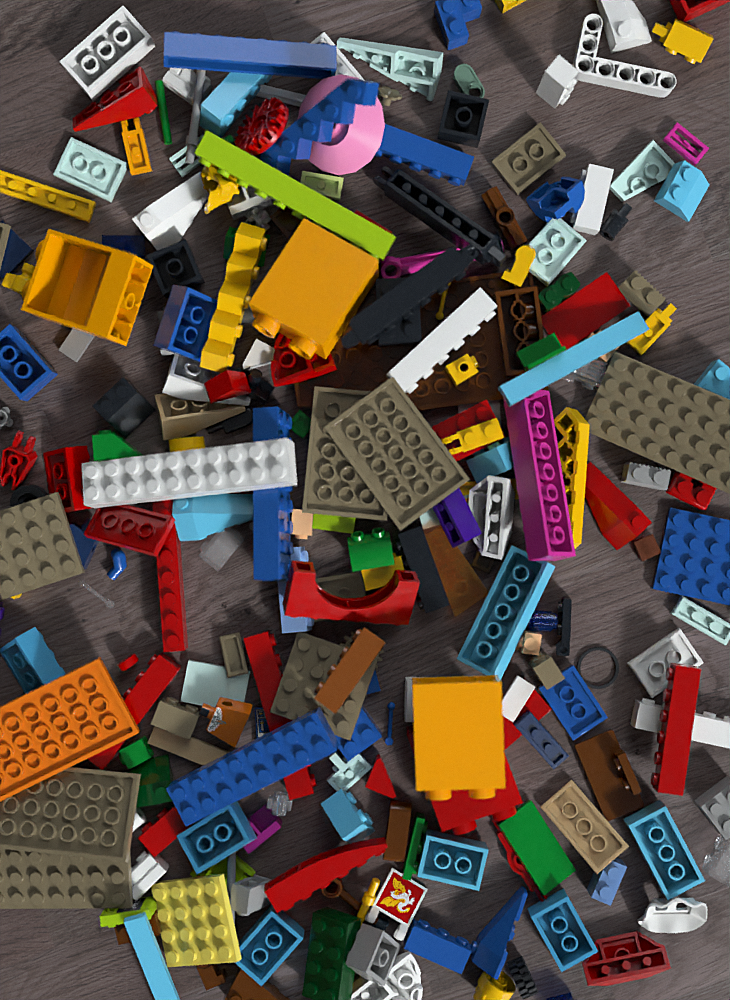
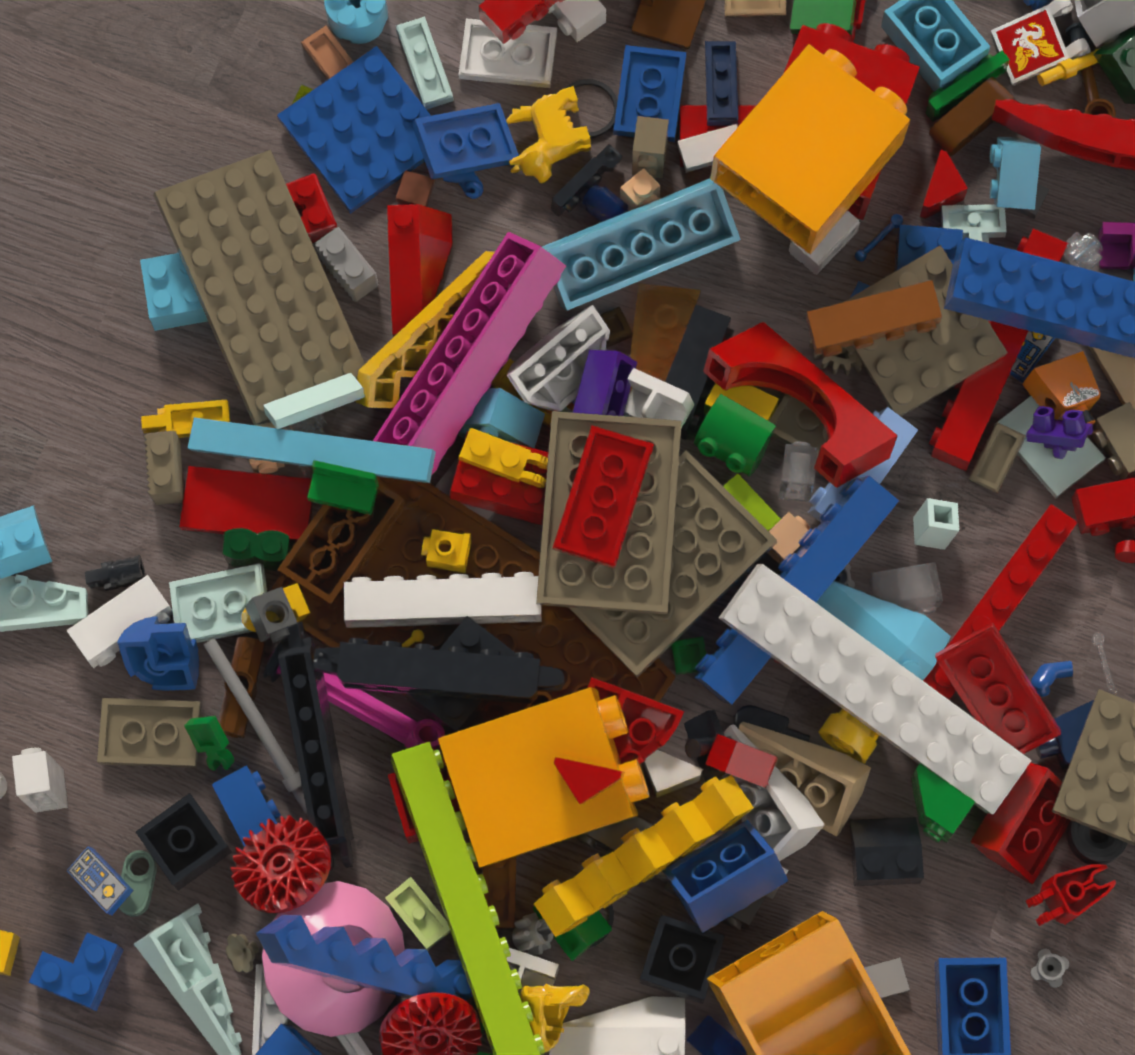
camera: 140 degrees left, 15 degrees down
(210, 692) = (1059, 434): none -> dark purple hips
(234, 592) = (936, 523): none -> light aqua brick
(284, 298) = (586, 779): none -> red slope
(324, 560) = (798, 472): none -> clear brick
(402, 141) = (281, 865): none -> red wheel
(405, 456) = (603, 496): none -> red tile
(423, 533) = (656, 399): none -> white panel
(486, 68) = (100, 880): none -> tile
(495, 178) = (210, 738): none -> green plate
(512, 213) = (291, 778): none -> light grey bar
(526, 253) = (275, 602): none -> dark grey brick
(596, 387) = (314, 401): none -> light aqua tile
(601, 637) = (555, 134): none -> yellow animal
(625, 575) = (469, 183): none -> blue arm
(643, 593) = (465, 141): none -> blue plate

